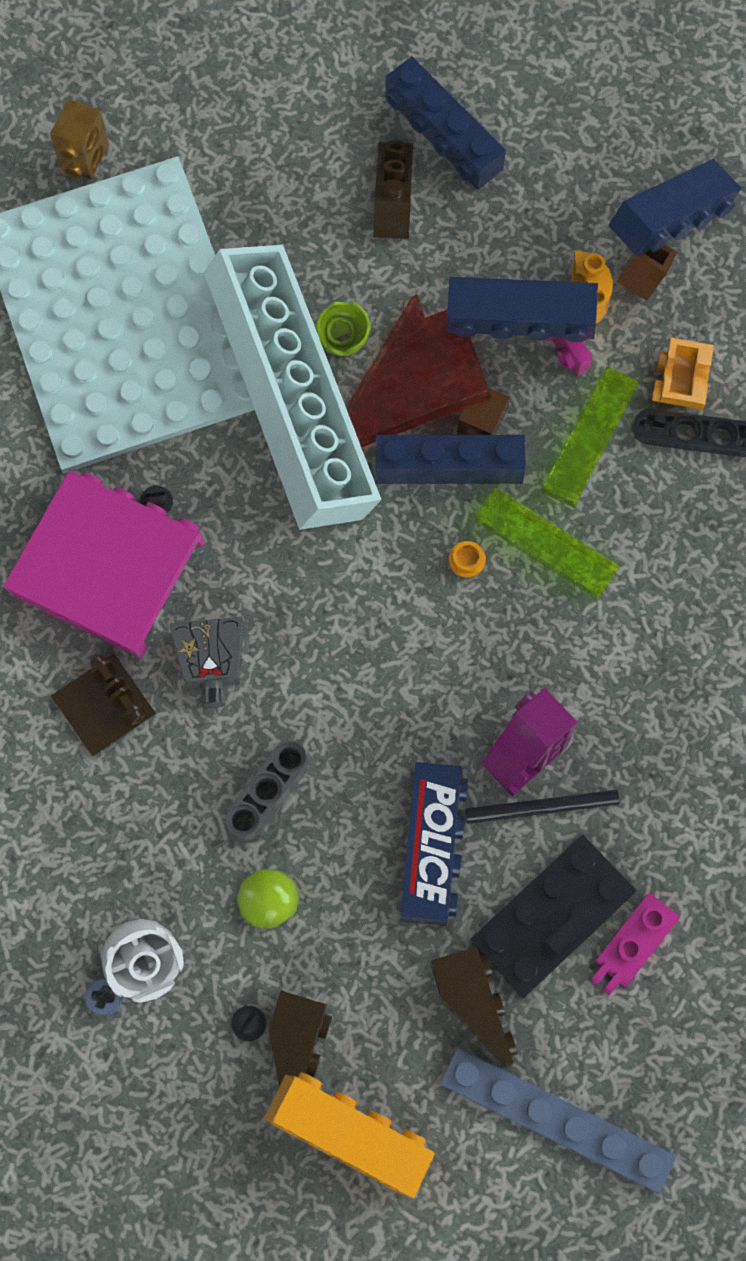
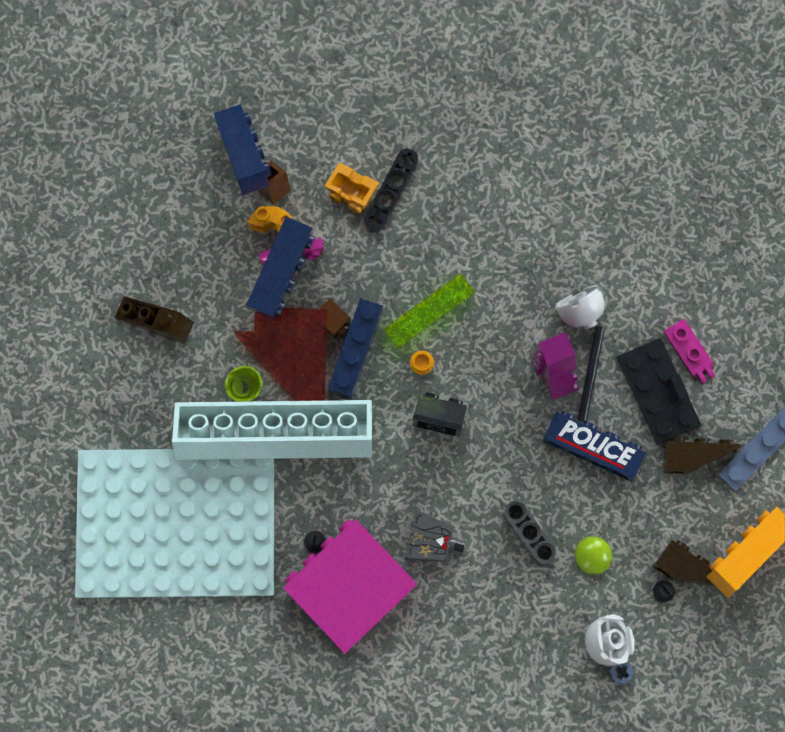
camera: 70 degrees left, 5 degrees up
(79, 139) = (48, 510): pearl gold brick -> none
(103, 704) = (438, 616): dark brown hinge -> none
(397, 604) = (439, 414): none -> black slope
(444, 123) = (121, 270): dark blue brick -> none
(590, 437) = (369, 259): clear neon green plate -> none
(634, 756) = (582, 308): none -> white cylinder

